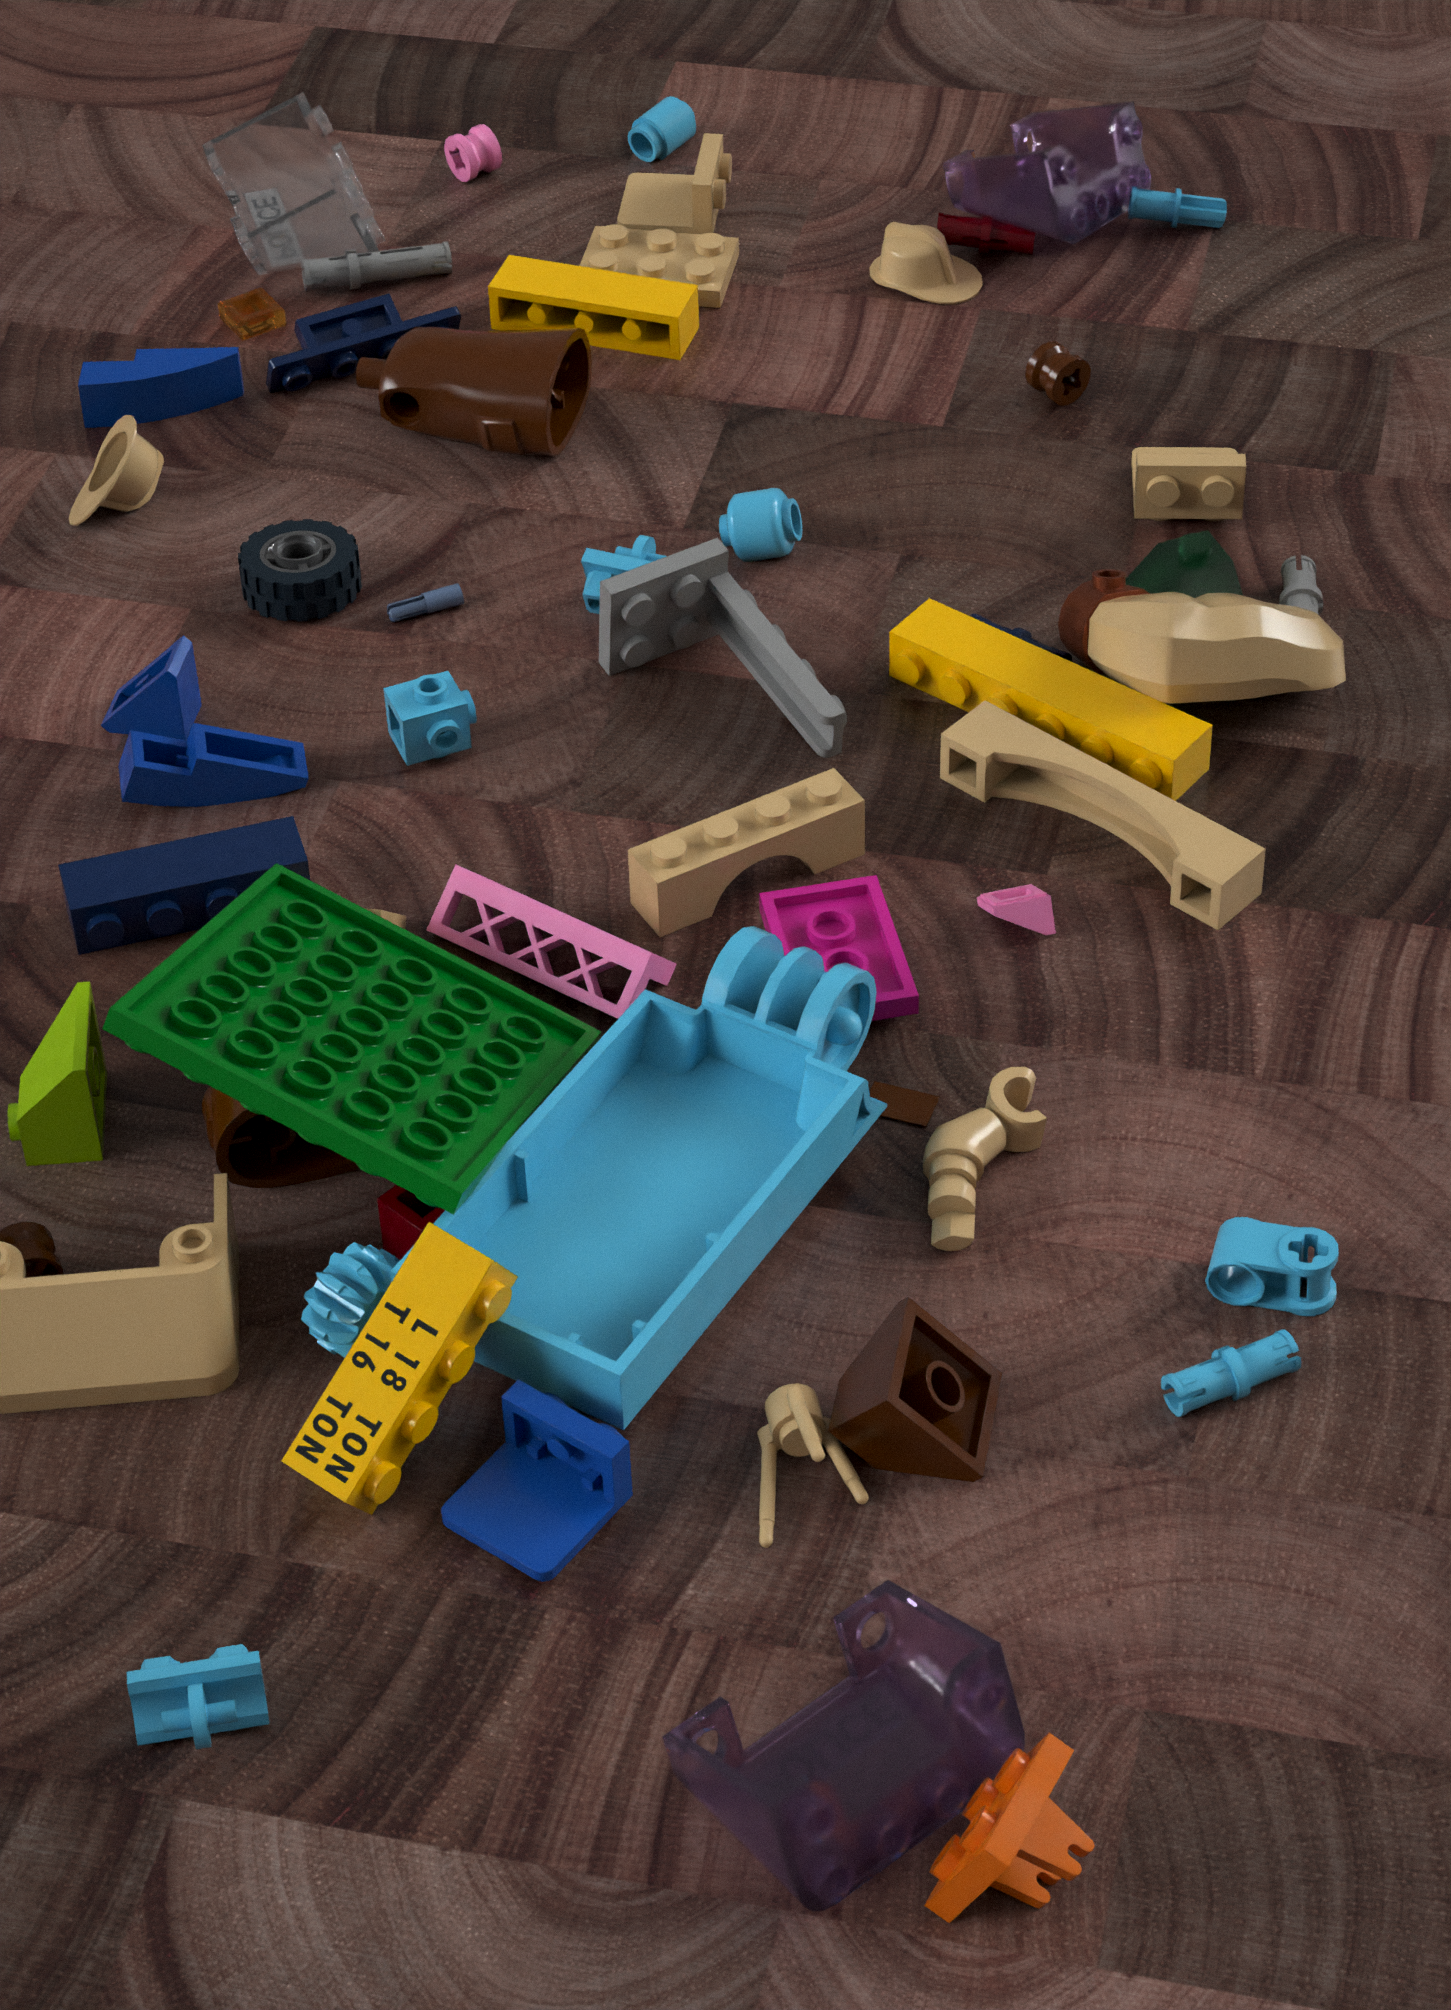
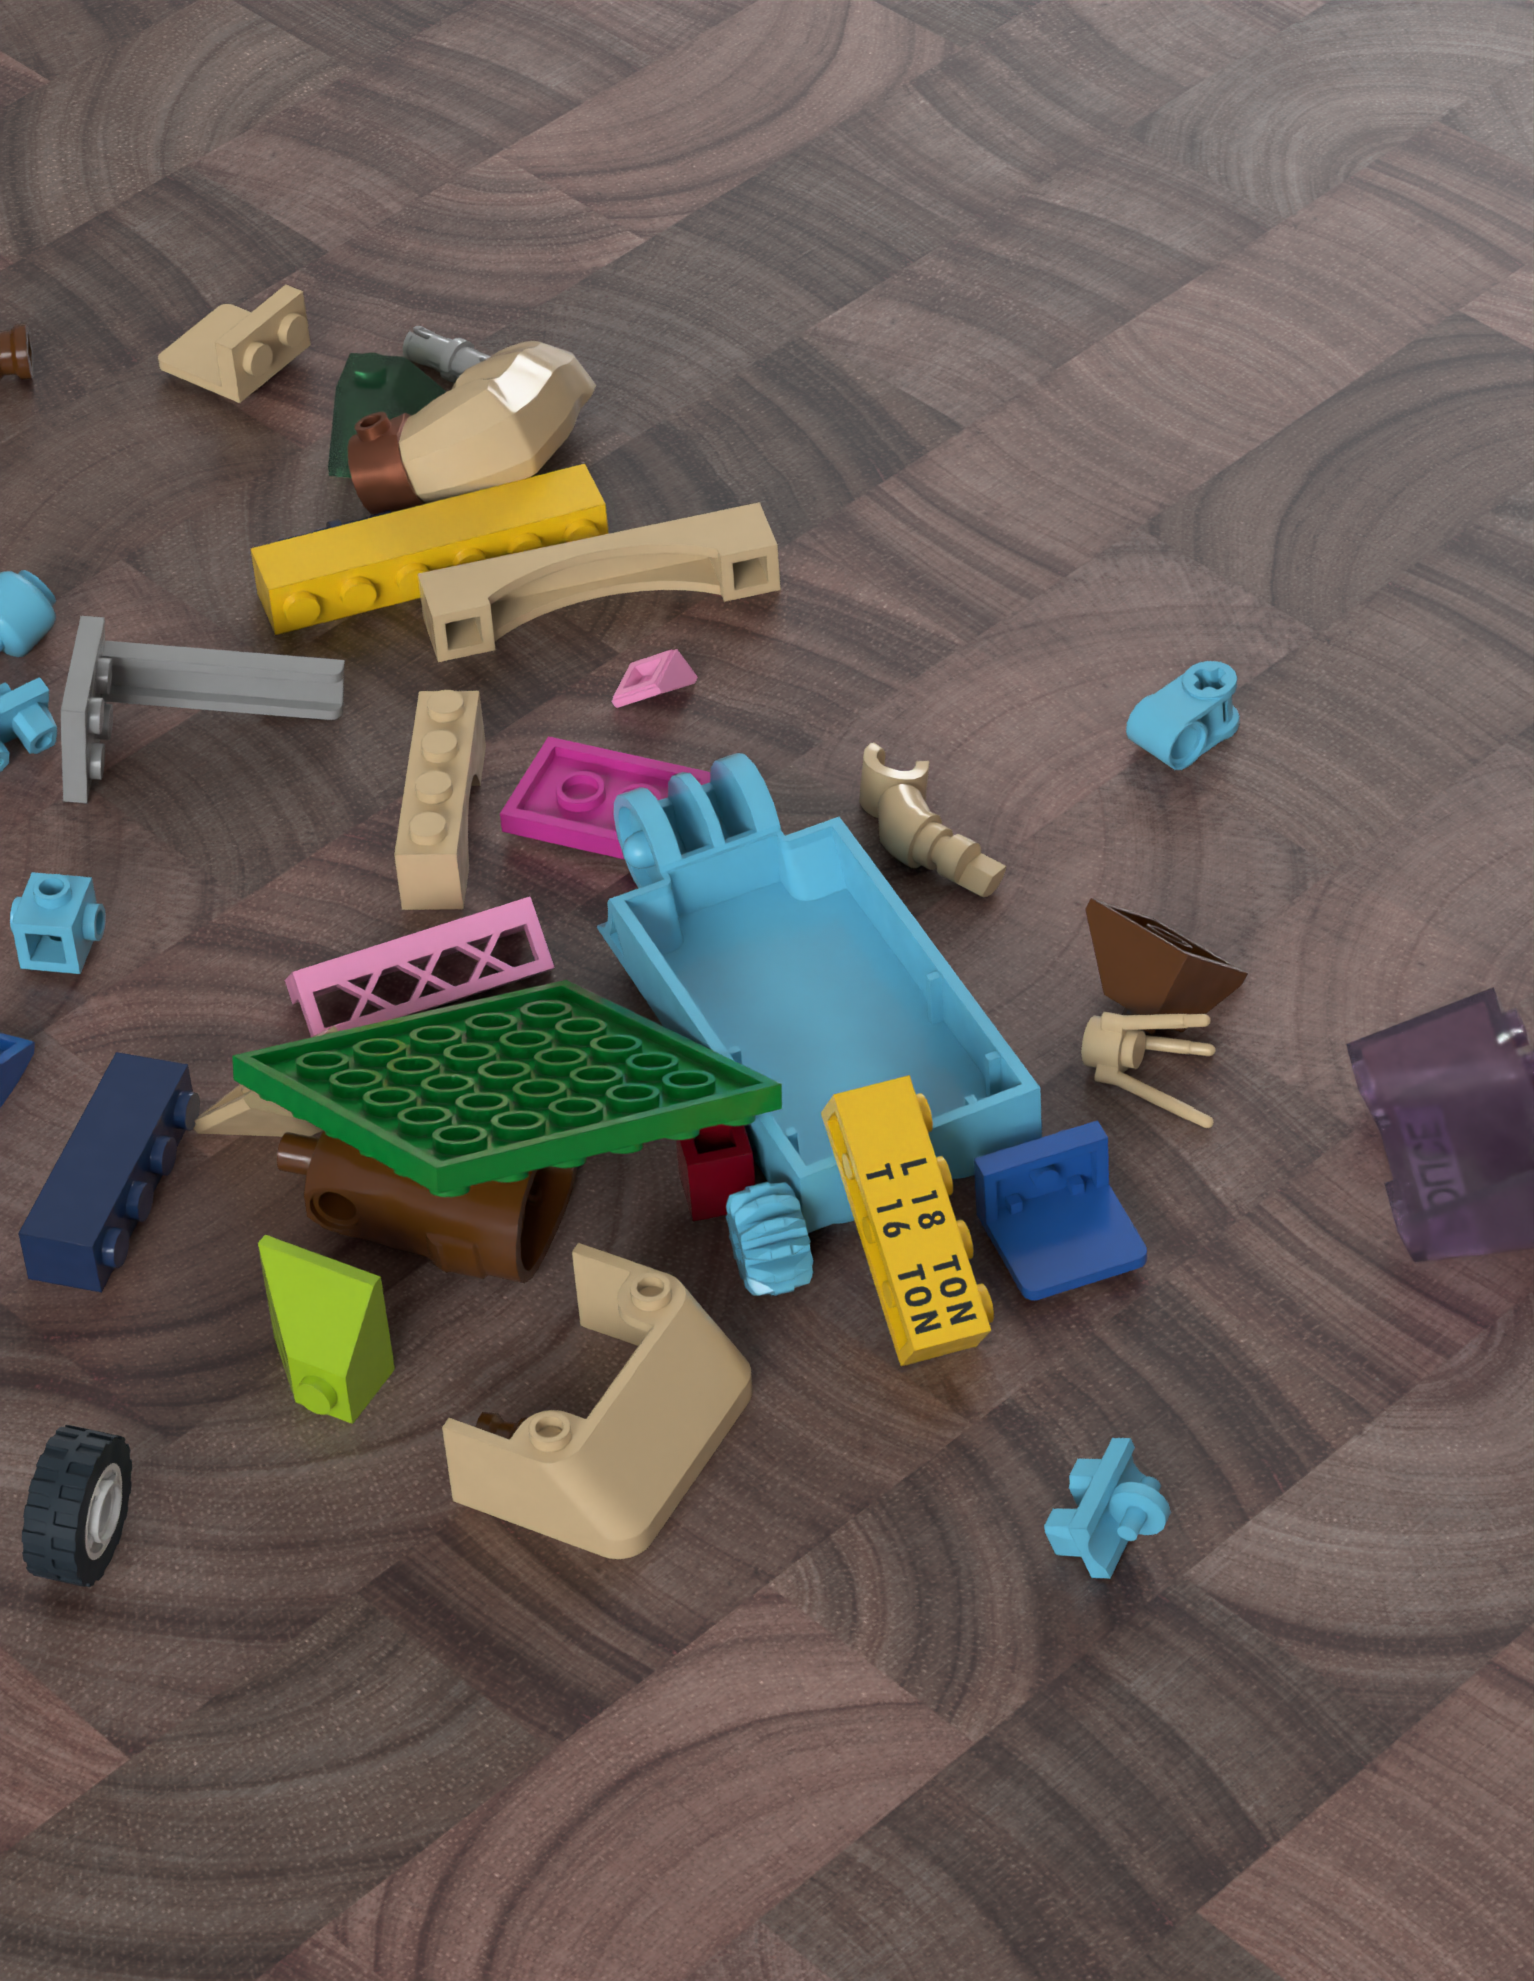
camera: 55 degrees left, 0 degrees up
(1230, 1373) = (1267, 792): medium azure pin -> none

